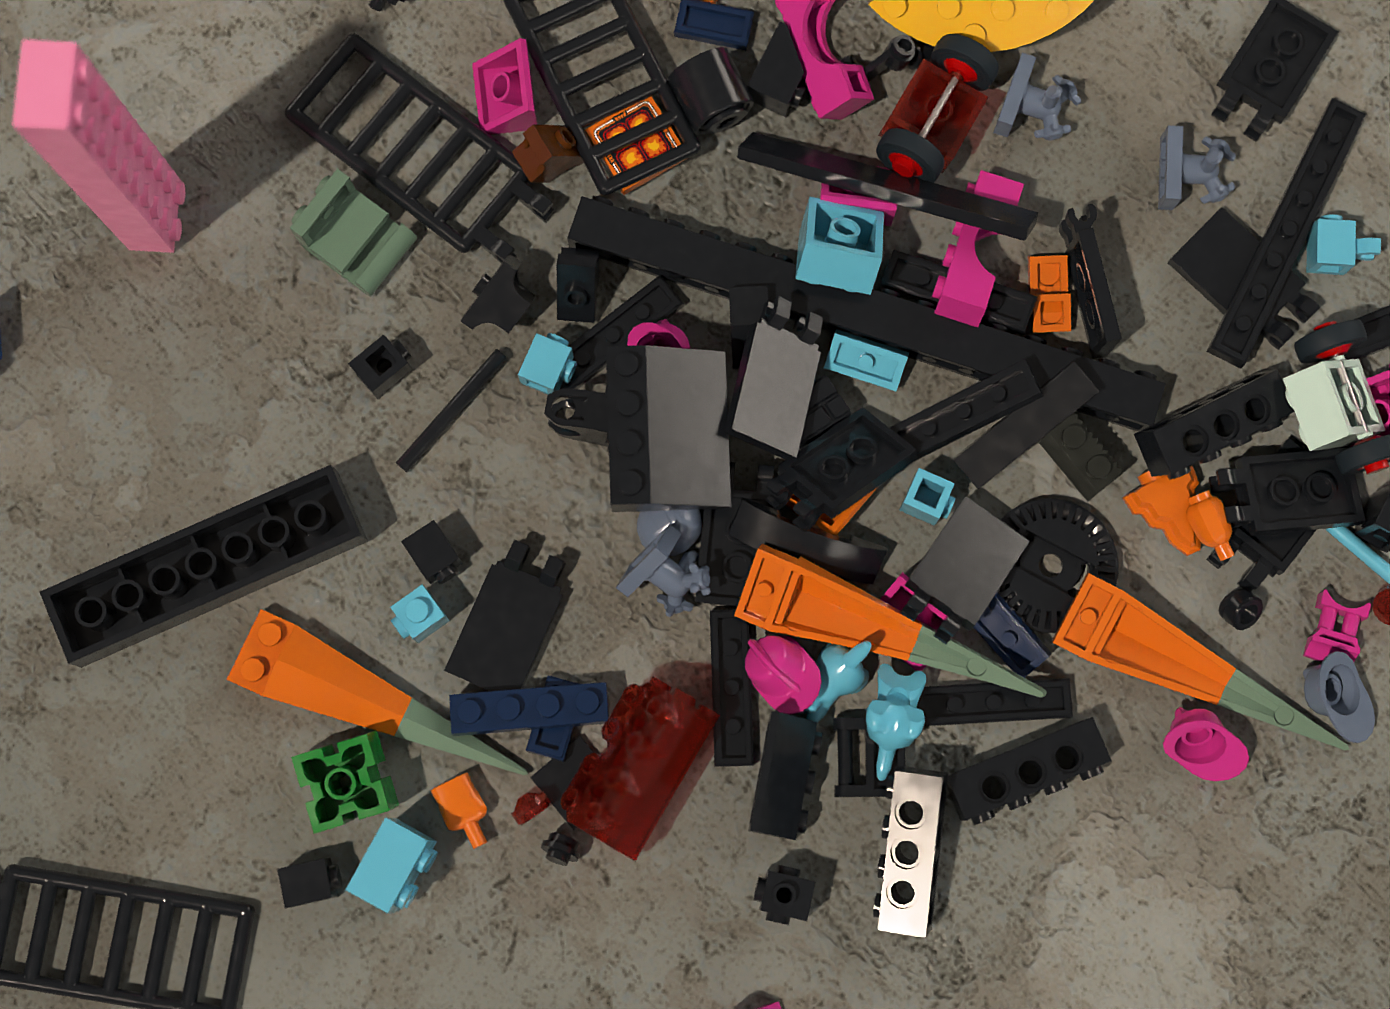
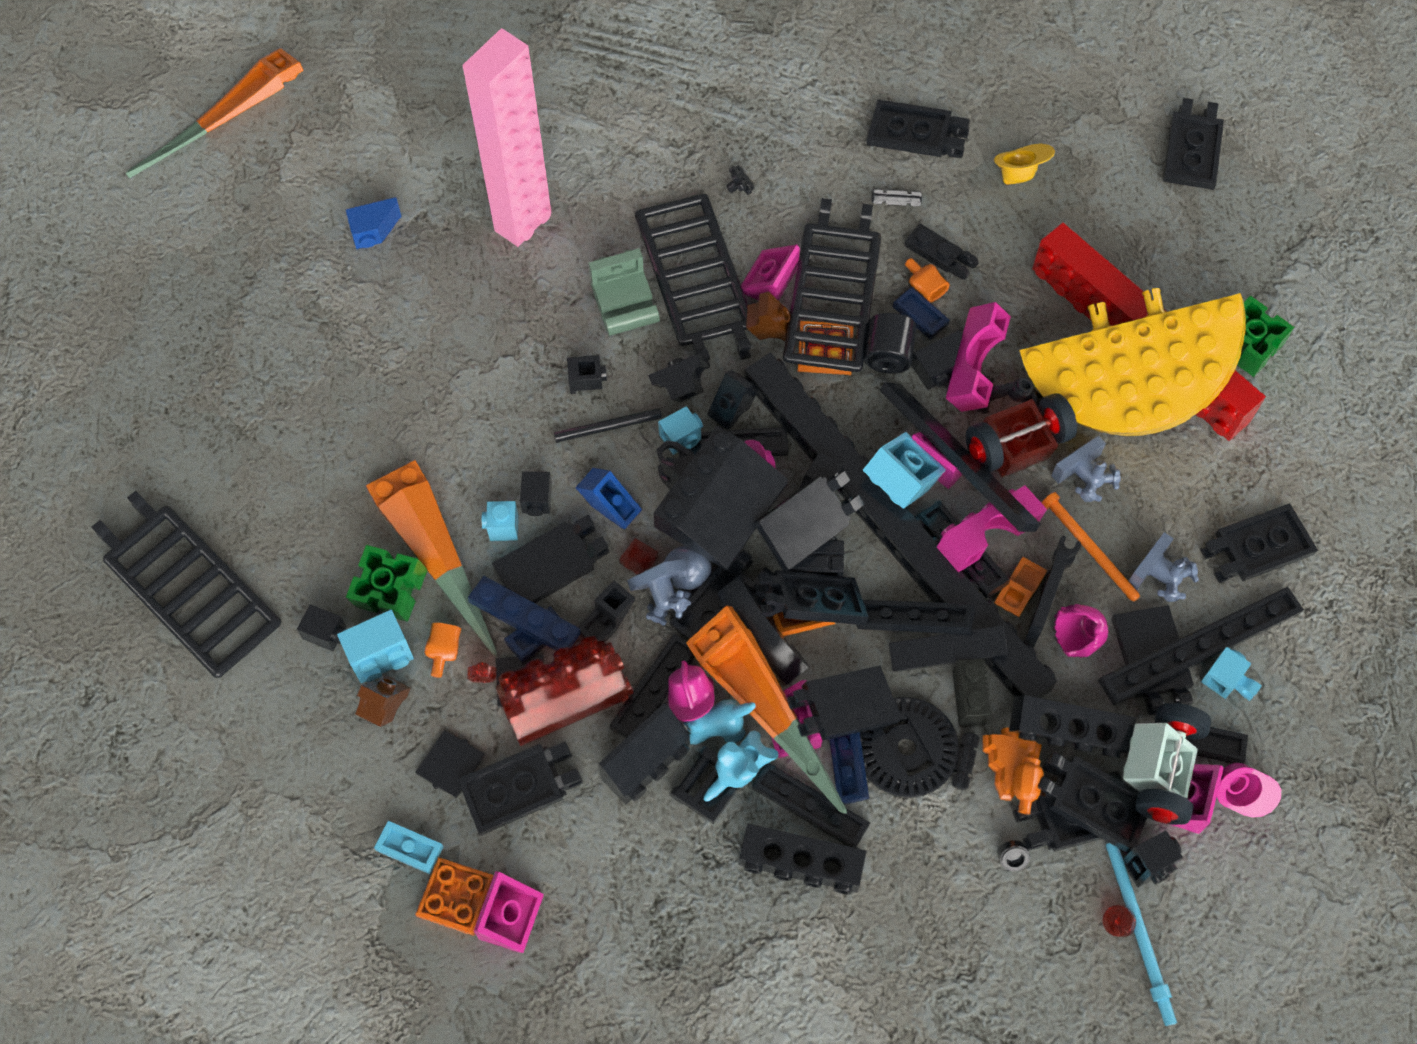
camera: 35 degrees right, 15 degrees down
(203, 567) = (402, 415): black brick -> none
(443, 917) = (381, 700): none -> reddish brown brick
(520, 500) = (609, 497): none -> blue slope
(560, 849) = (481, 709): black plate -> none
(569, 931) = (448, 762): none -> black piece
(604, 547) = (638, 557): none -> clear red tile
(620, 643) = (608, 614): none -> black slope
(664, 907) = (517, 786): none -> black tile
(800, 897) = (597, 837): black brick -> none
(866, 360) = (876, 551): medium azure plate -> none
(928, 497) = (856, 650): medium azure brick -> none
(929, 790) = (691, 870): brick -> none
(1120, 201) = (1052, 502): none -> orange bar
(1122, 537) = (965, 761): none -> black axle
(1131, 638) = (927, 823): orange plate -> none
(1150, 303) = (1080, 630): none -> dark pink hair
(1204, 745) = (928, 922): dark pink piece -> none
(1326, 640) = (1060, 920): dark pink piece -> none
(1339, 693) = (1042, 950): sand blue piece -> none

